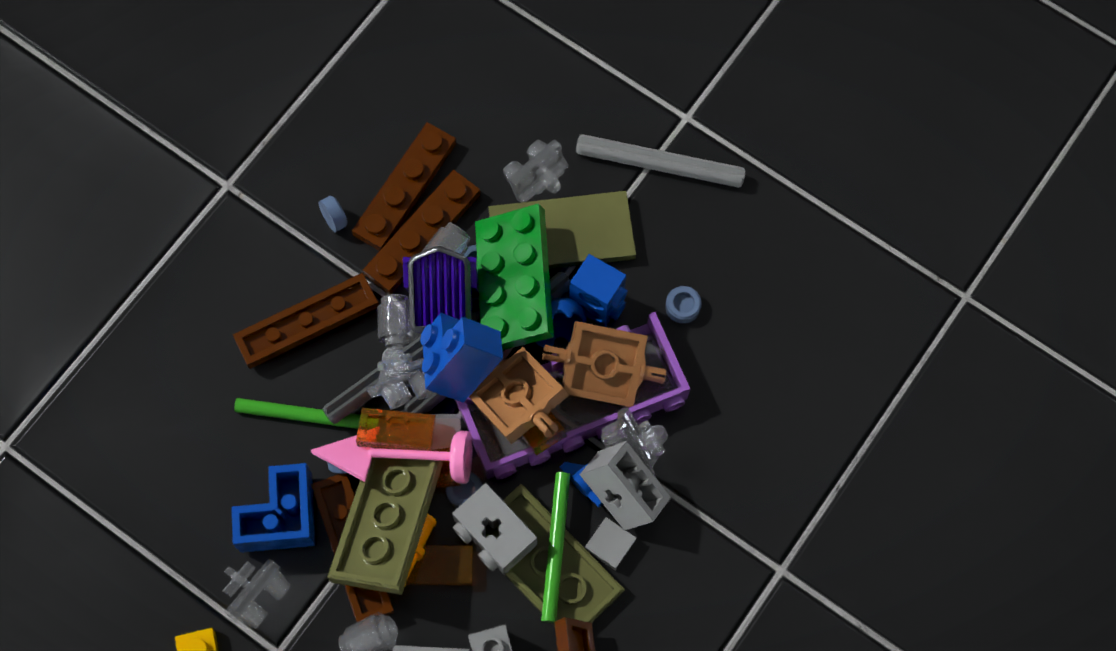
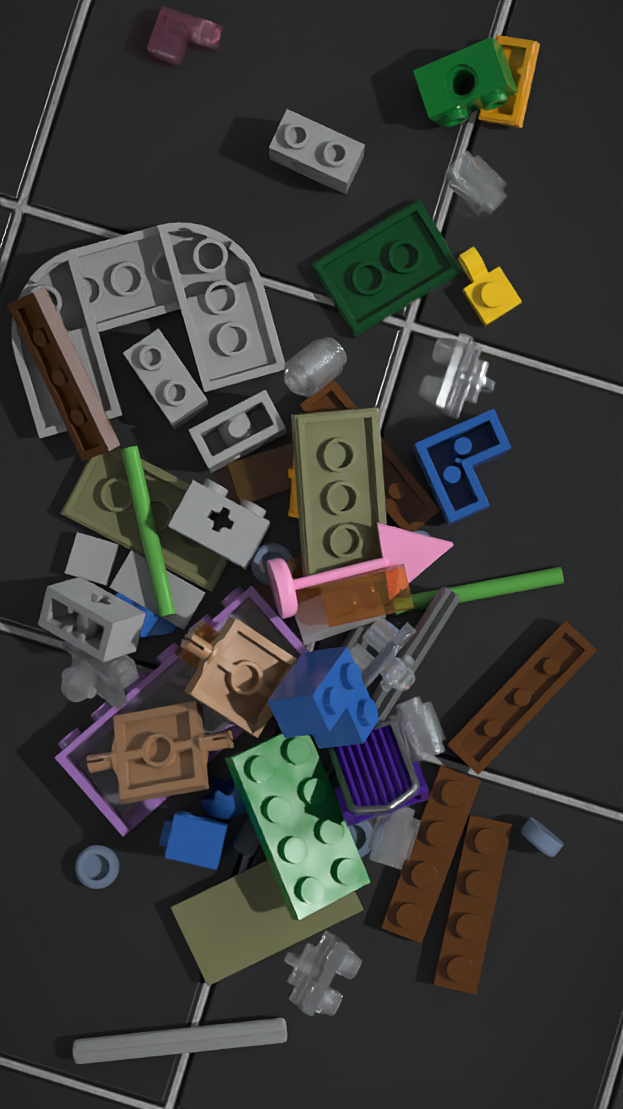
camera: 160 degrees right, 15 degrees up
(452, 602) = (238, 431): none -> light grey brick
(580, 509) = (135, 583): none -> light grey tile

